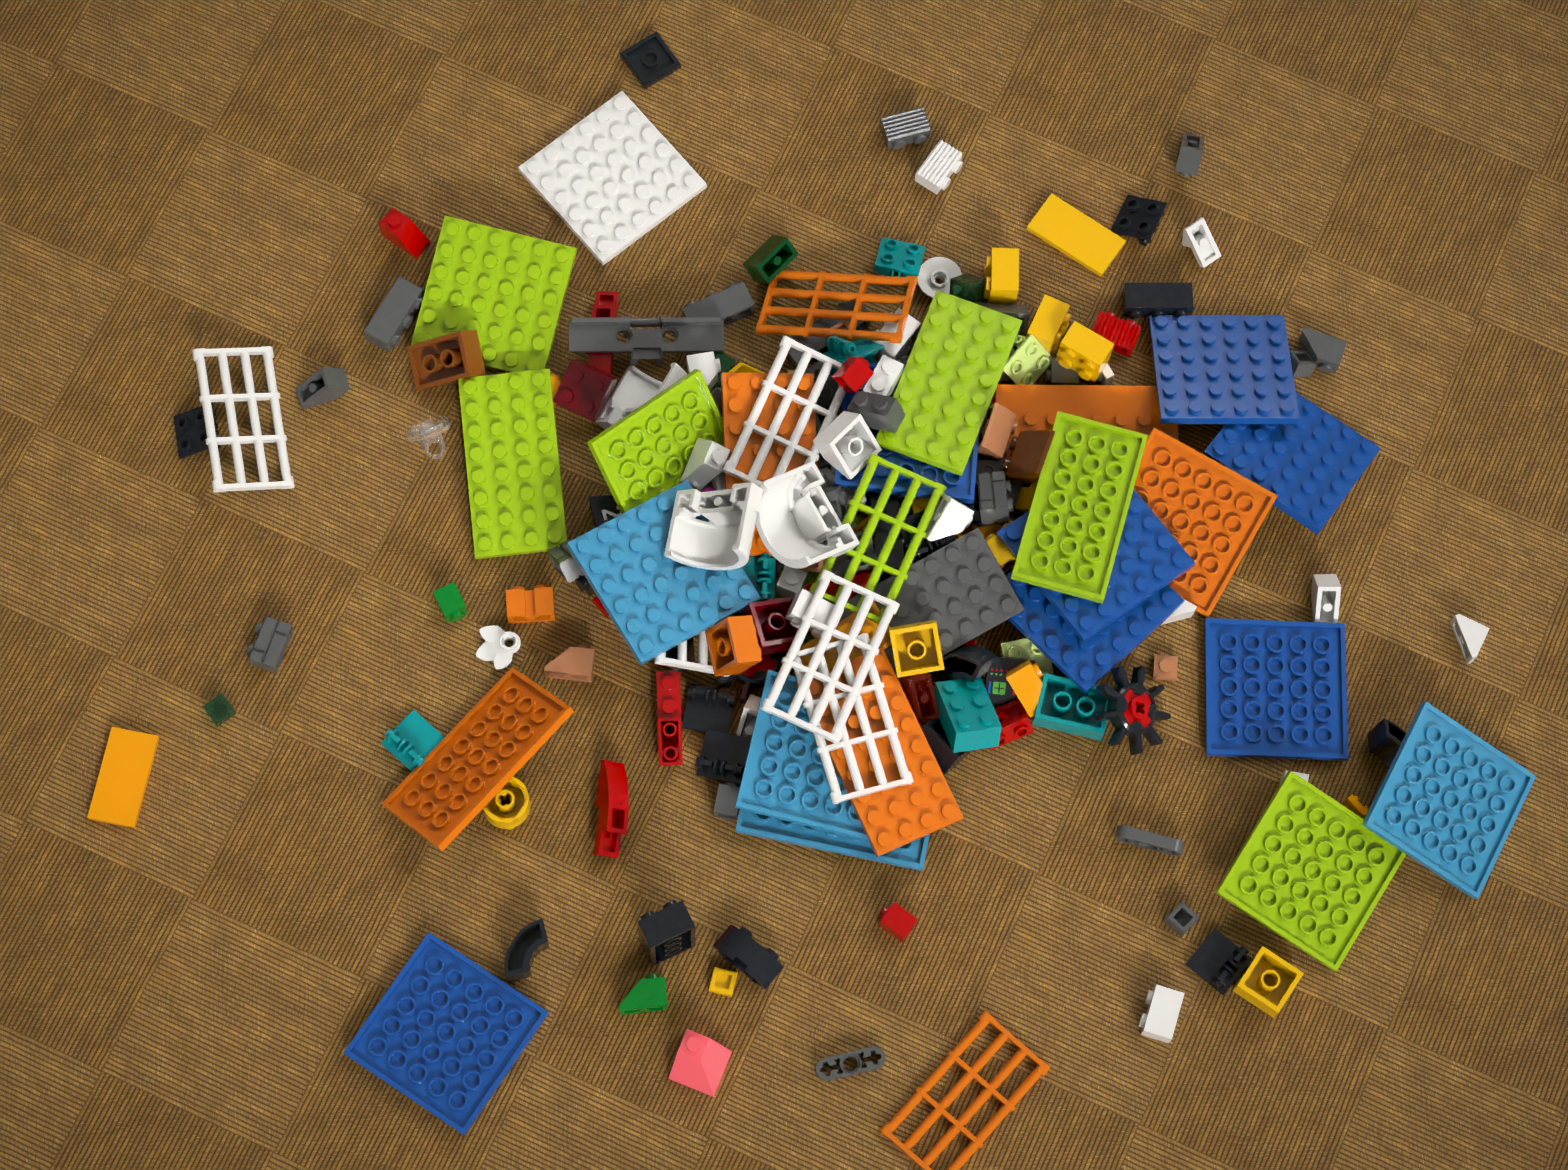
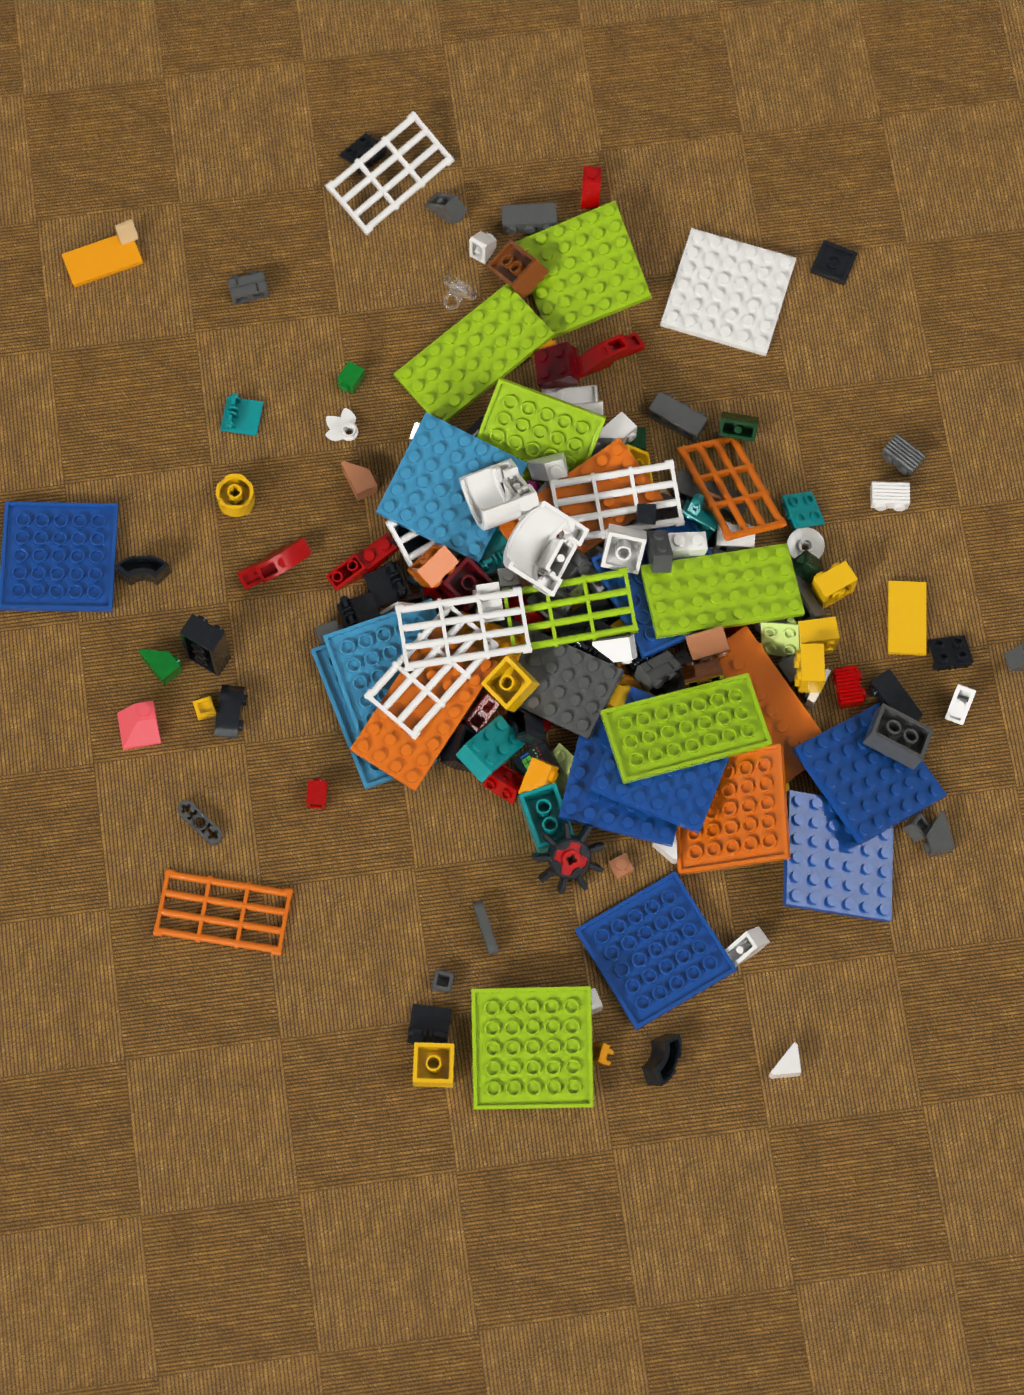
camera: 60 degrees right, 0 degrees up
(114, 731) = (126, 232): none -> tan slope
(219, 709) = (184, 285): clear green plate -> none
(395, 379) = (482, 246): none -> white slope
(477, 758) = (252, 458): orange plate -> none
(530, 604) = (383, 428): orange brick -> none
(690, 334) = (601, 350): dark grey piece -> none
(825, 399) = (646, 514): none -> black slope
(853, 374) = (676, 520): red brick -> none
(1161, 1014) = (365, 1006): white brick -> none
(1205, 317) = (898, 736): none -> dark grey brick
(1449, 800) = (648, 1114): dark azure plate -> none

